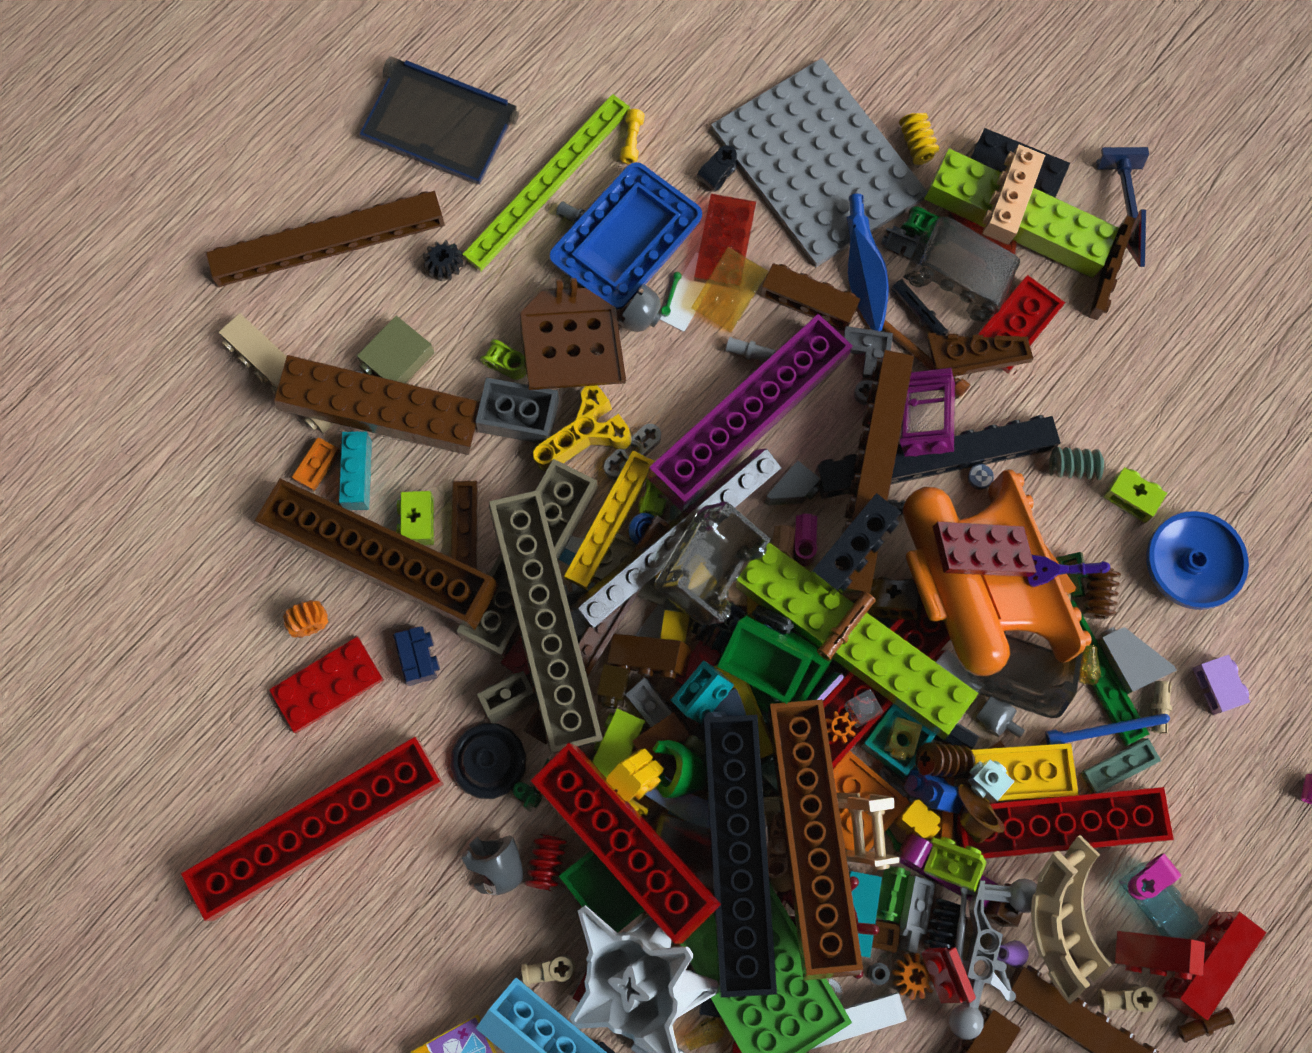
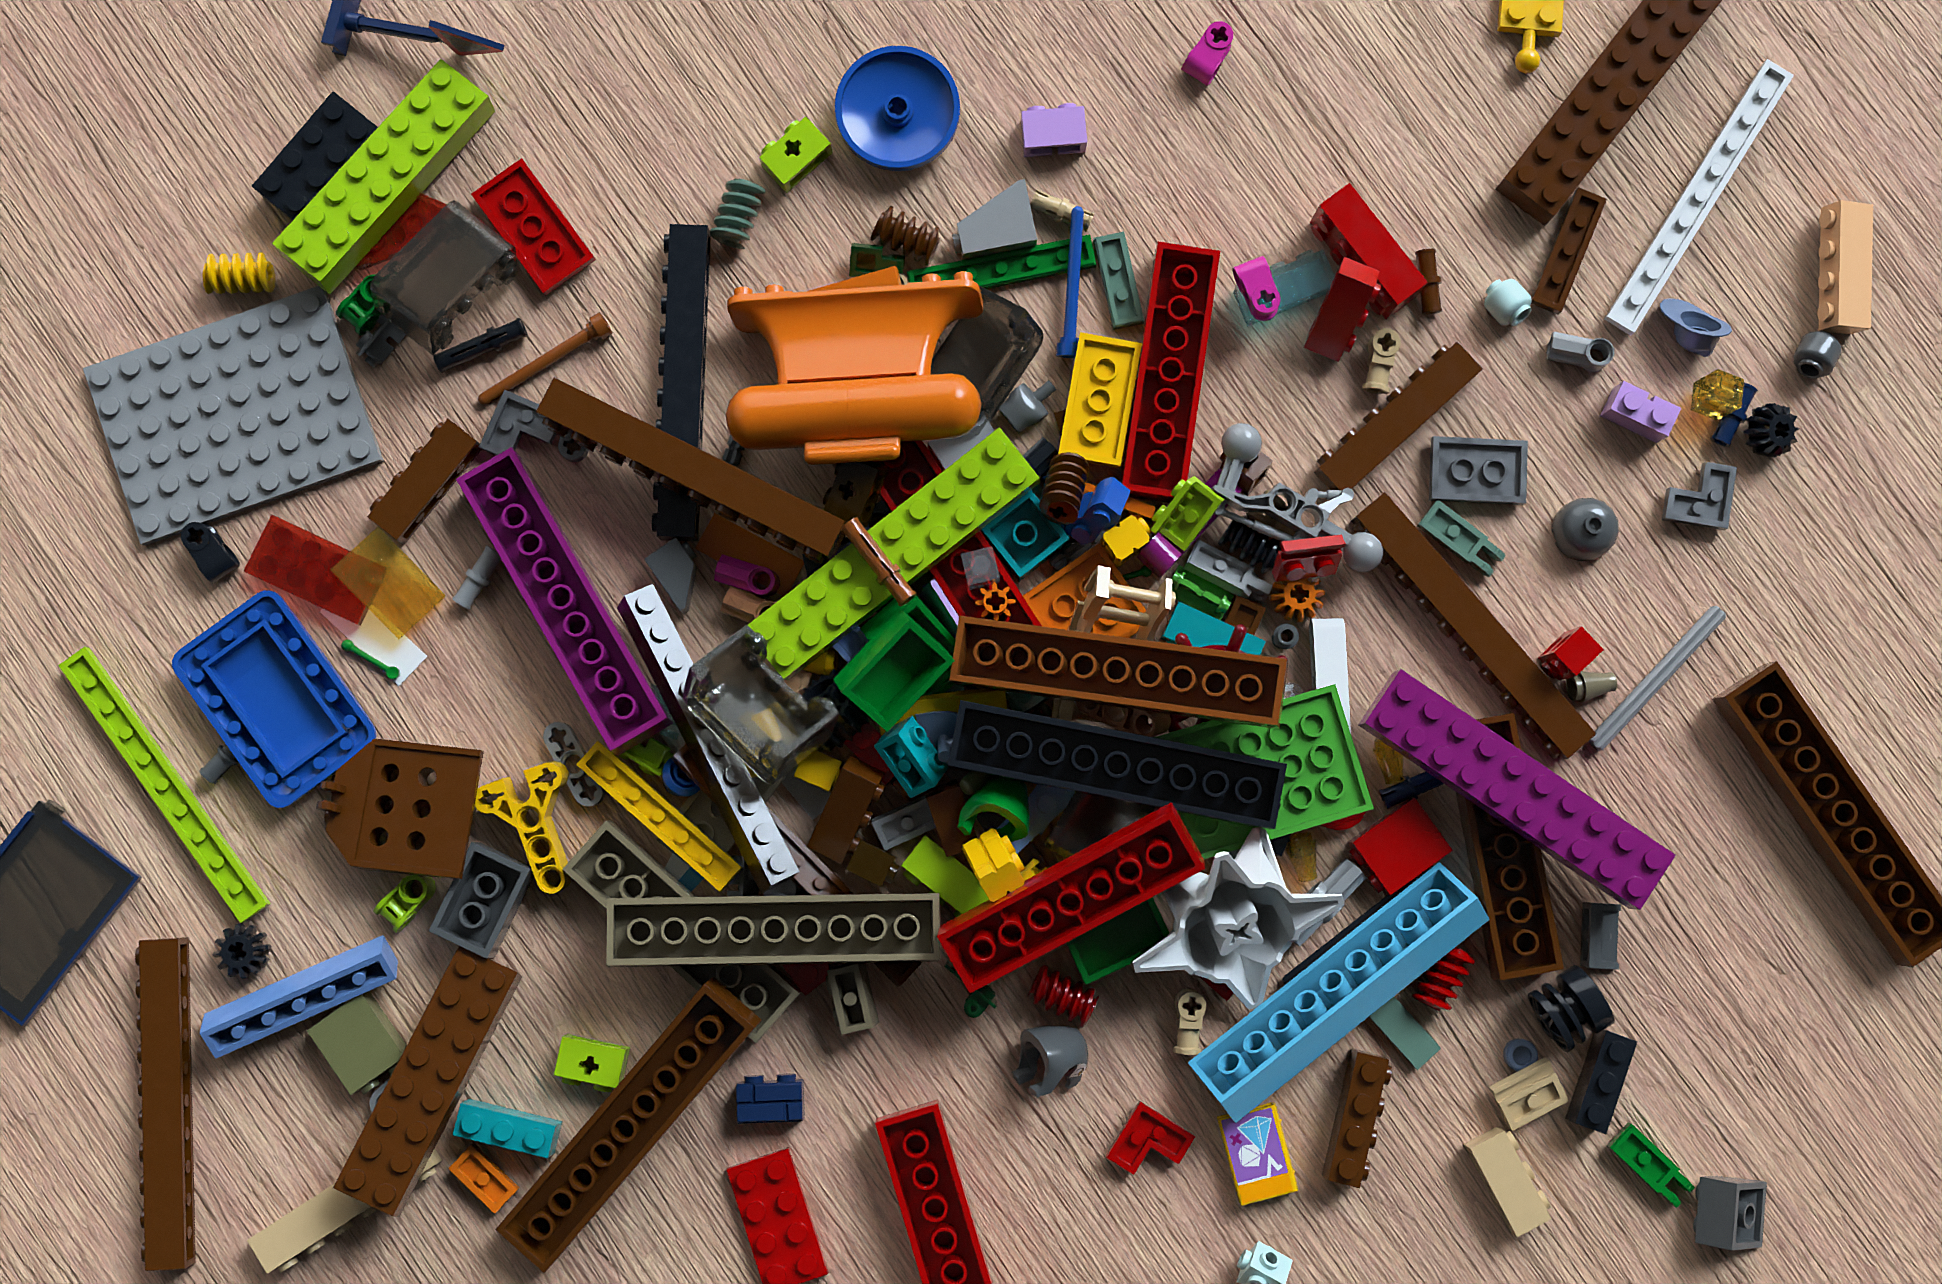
camera: 75 degrees left, 10 degrees up
(305, 619) = (689, 1231): orange gear -> none
(419, 305) = (299, 996): none -> medium blue brick
(455, 958) = (1145, 1130): none -> red plate
(465, 522) = (618, 1002): reddish brown plate -> none
(488, 760) = (922, 1038): black piece -> none
(634, 119) = (104, 644): yellow piece -> none
(641, 311) = (387, 705): dark grey cylinder -> none
(772, 619) = (842, 646): dark grey axle -> none
(829, 525) = (734, 541): none -> orange sticker
(866, 267) = (404, 397): blue animal -> none
(876, 511) = (746, 484): black brick -> none
(908, 728) = (1023, 517): clear yellow brick -> none
(929, 413) = (628, 377): magenta door -> none
(977, 353) = (561, 298): reddish brown wing -> none
(977, 815) = (1138, 468): reddish brown piece -> none
(980, 477) = (722, 335): sand blue tile -> none
(983, 549) = (826, 367): plate -> none
(997, 783) = (1106, 433): light aqua brick -> none
(1013, 194) = (362, 181): light nougat brick -> none
(1013, 953) = (1300, 474): medium lavender cone -> none
(1057, 569) = (872, 286): dark purple piece -> none
(1060, 910) = (1254, 403): tan fence -> none
(1090, 666) = (994, 279): clear yellow cone -> none
(1113, 263) = (488, 82): reddish brown wing -> none

